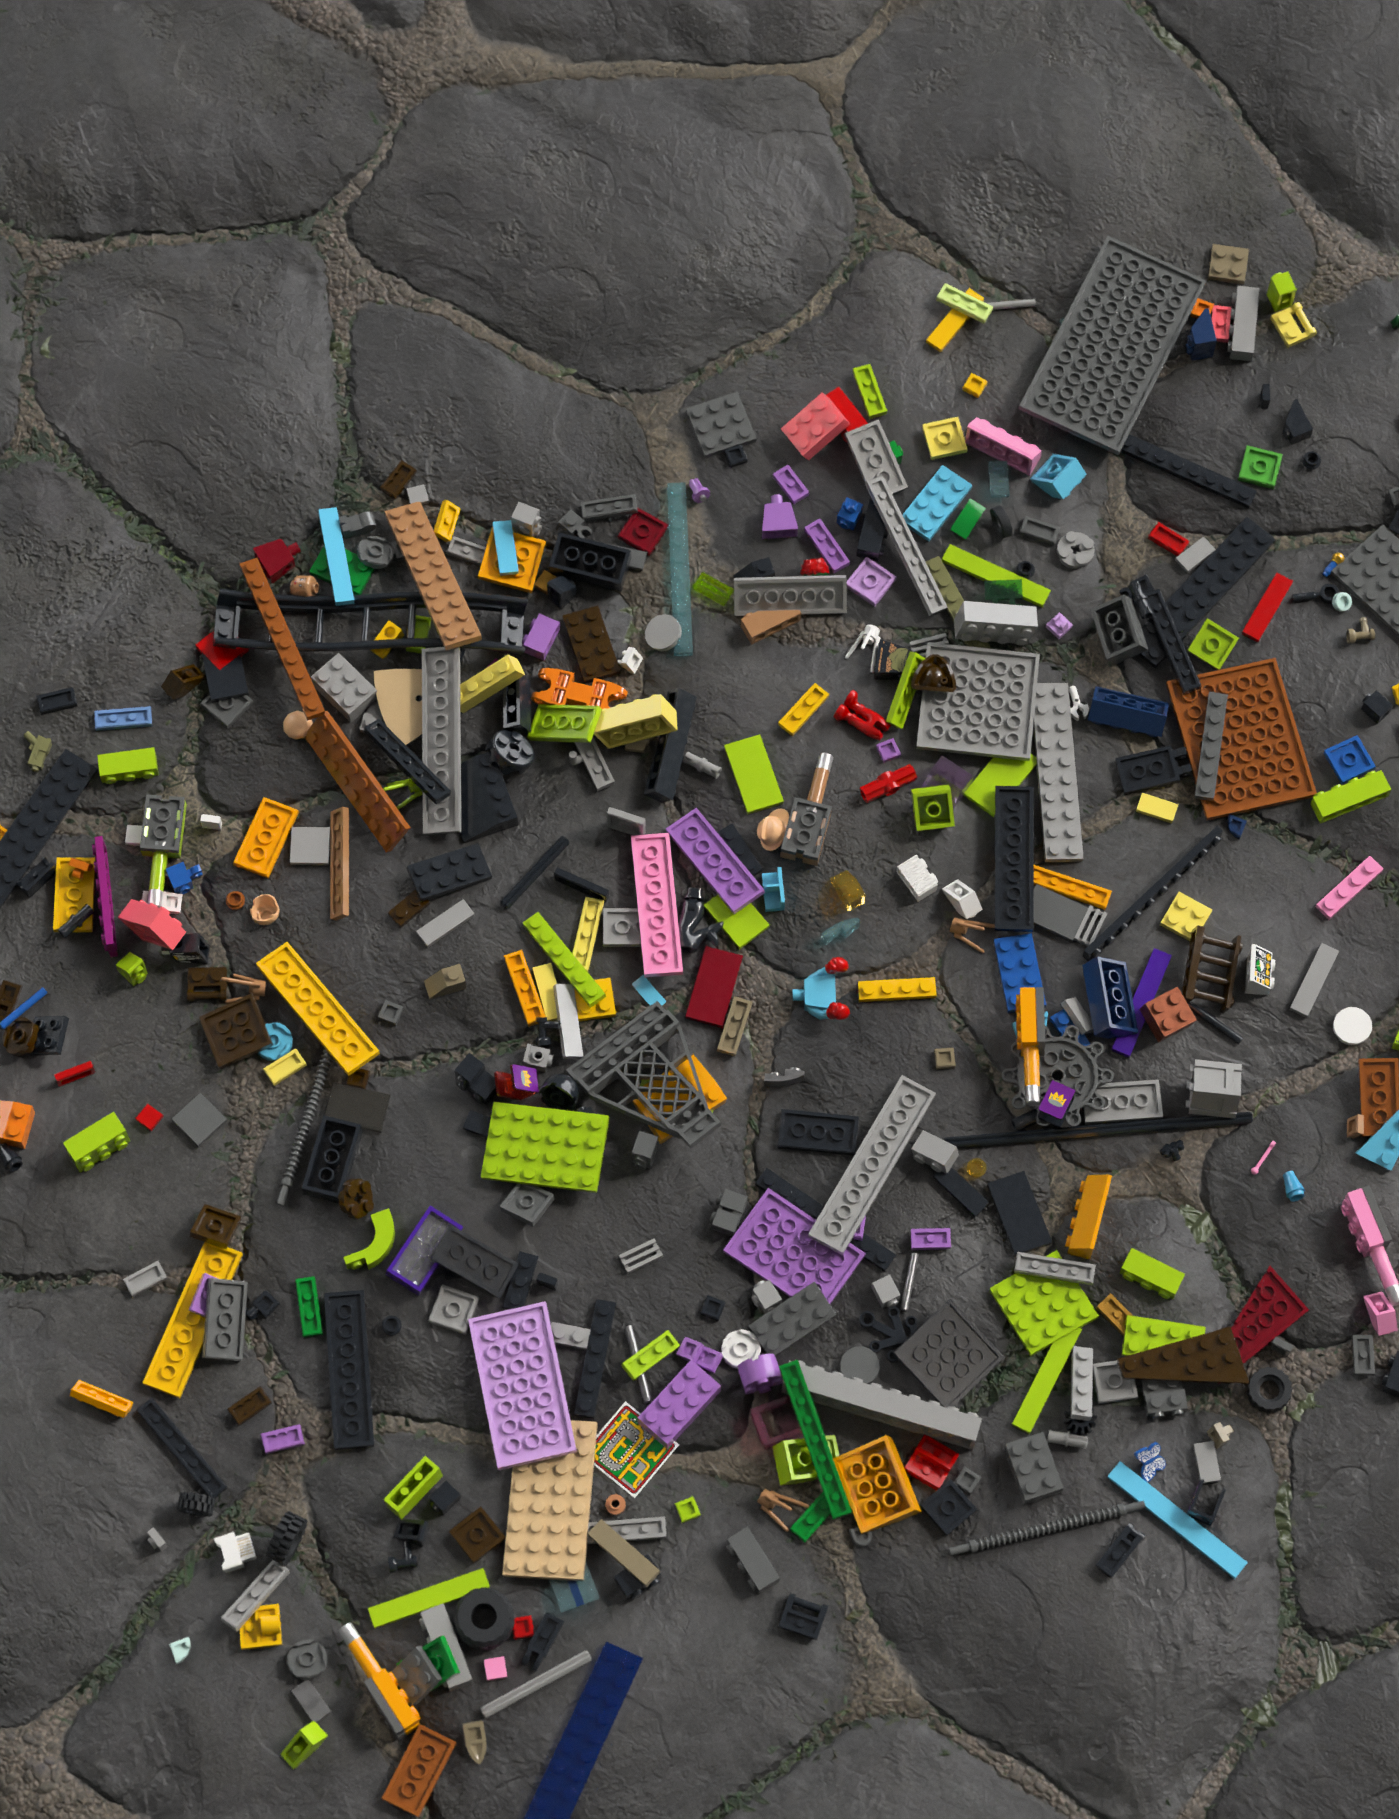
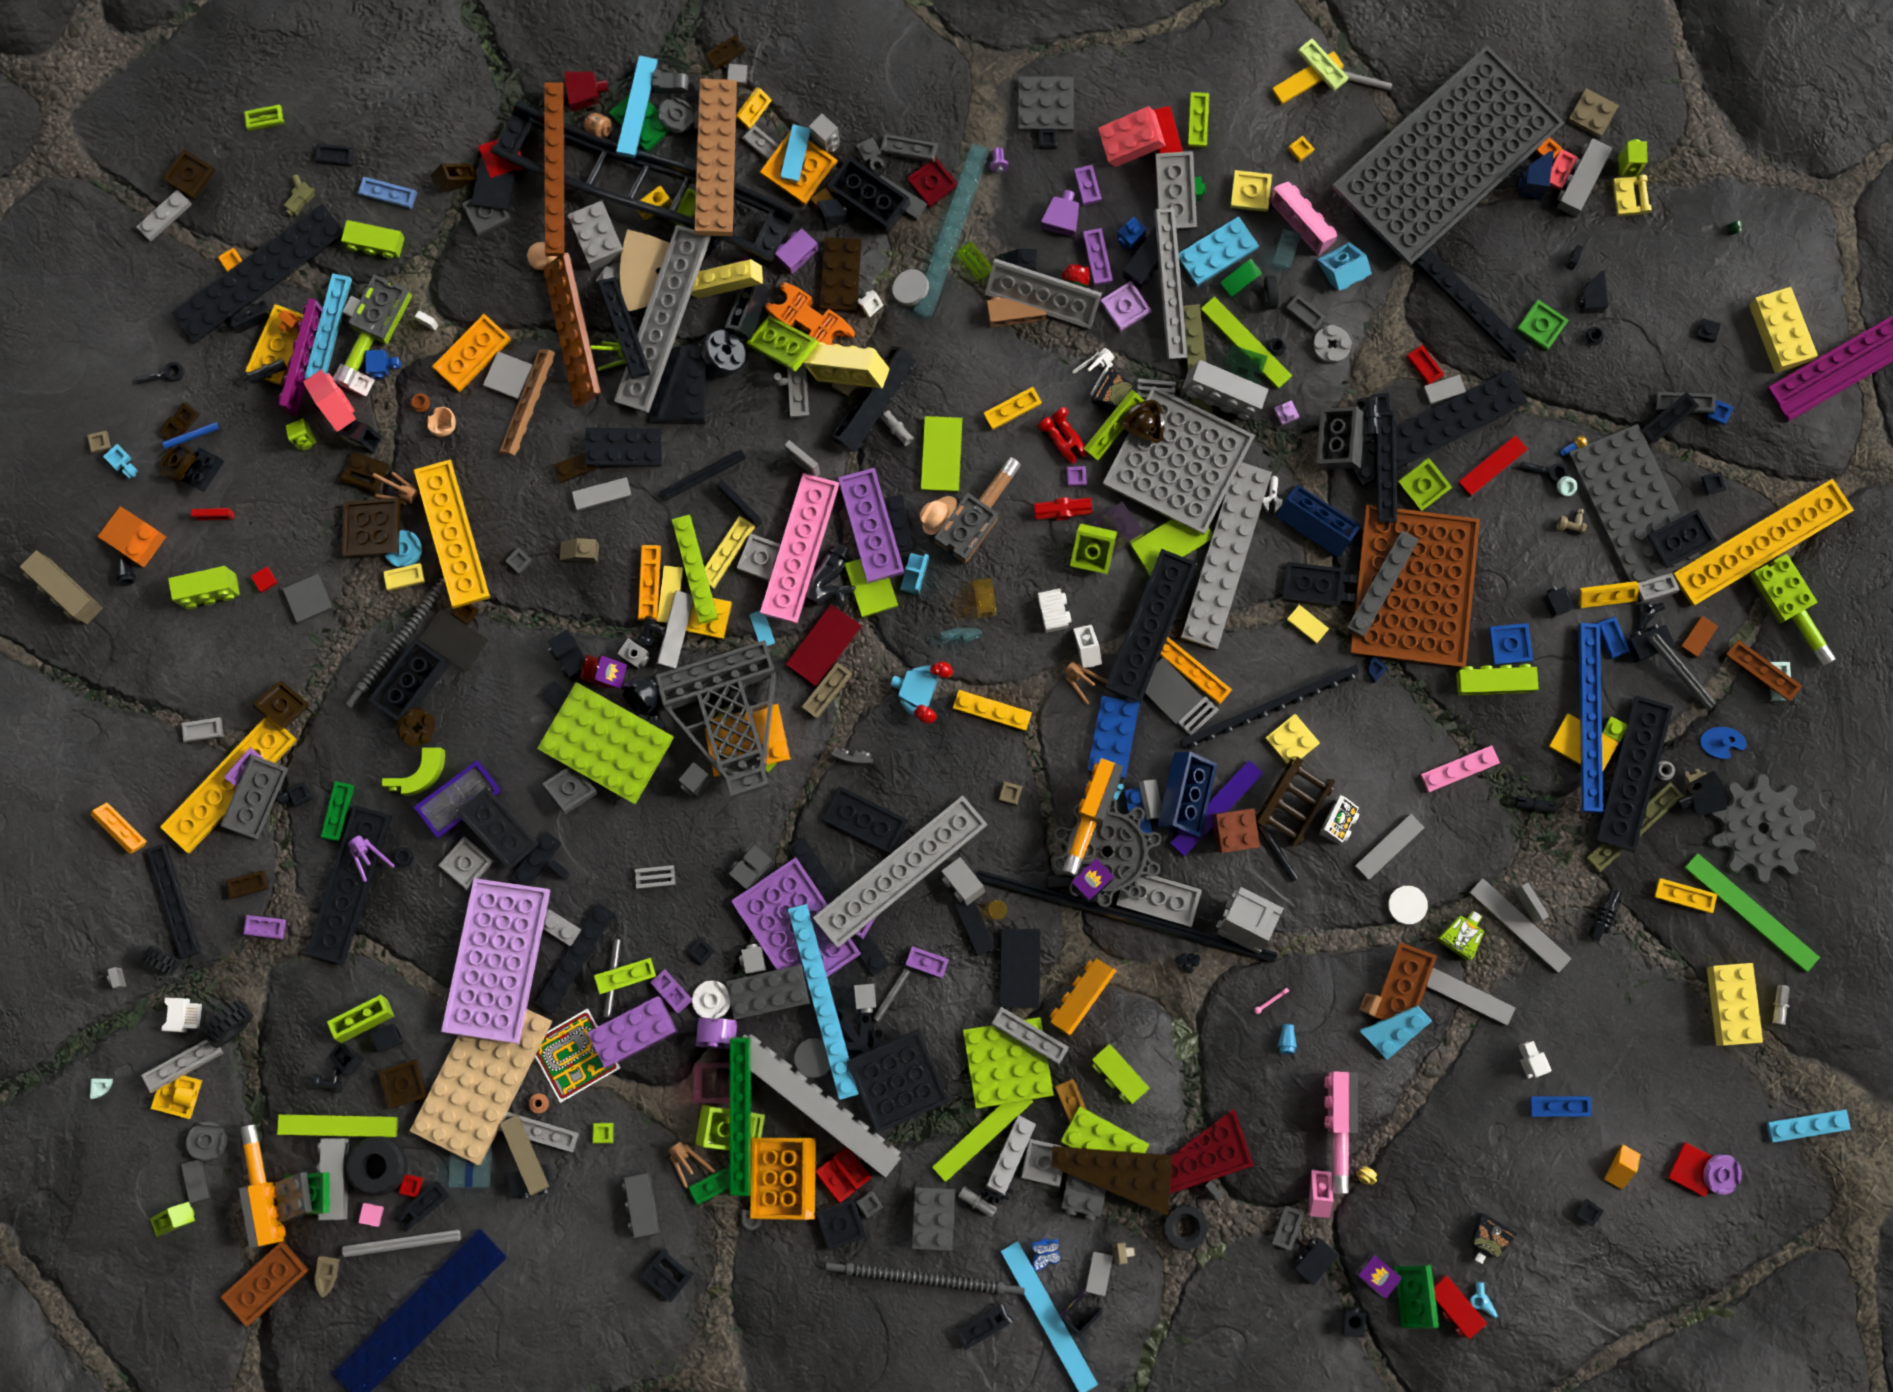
camera: 25 degrees right, 10 degrees up
(116, 859) = (329, 324): none -> medium azure plate
(348, 1328) = (359, 847): none -> medium lavender plant
(848, 1308) = (823, 1001): none -> medium azure plate

